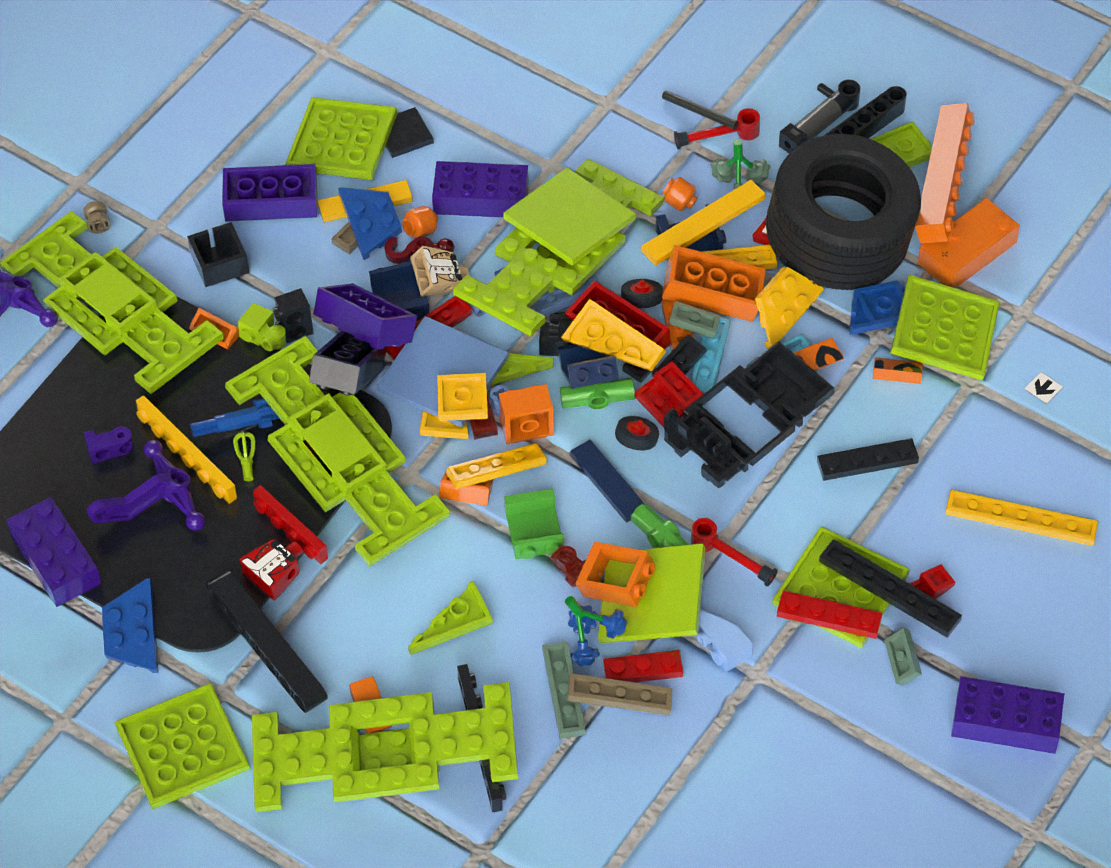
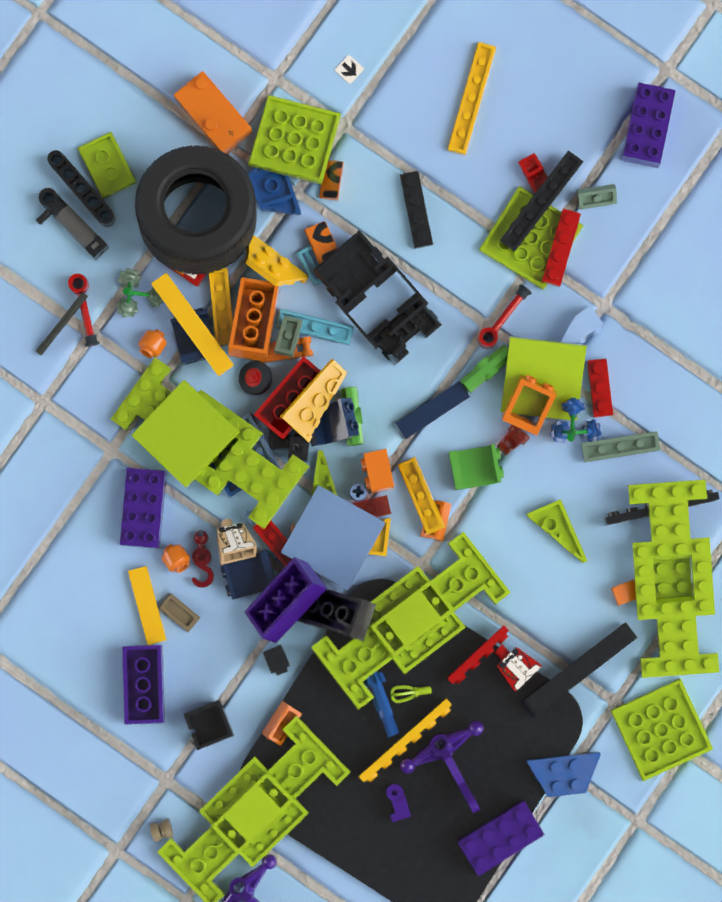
camera: 90 degrees left, 30 degrees up
(259, 328) = (287, 689): lime brick -> none
(342, 137) = (79, 626): lime tile -> none
(370, 217) = (171, 599): blue wing -> none
(408, 133) = (73, 574): black tile -> none
(462, 396) = (366, 521): yellow plate -> none
(619, 694) = (629, 405): dark tan plate -> none
(637, 433) = (393, 385): black wheel -> none
(667, 390) = (357, 359): red slope -> none
(685, 355) = (325, 349): black hinge -> none
(944, 173) = (144, 125): brick -> none

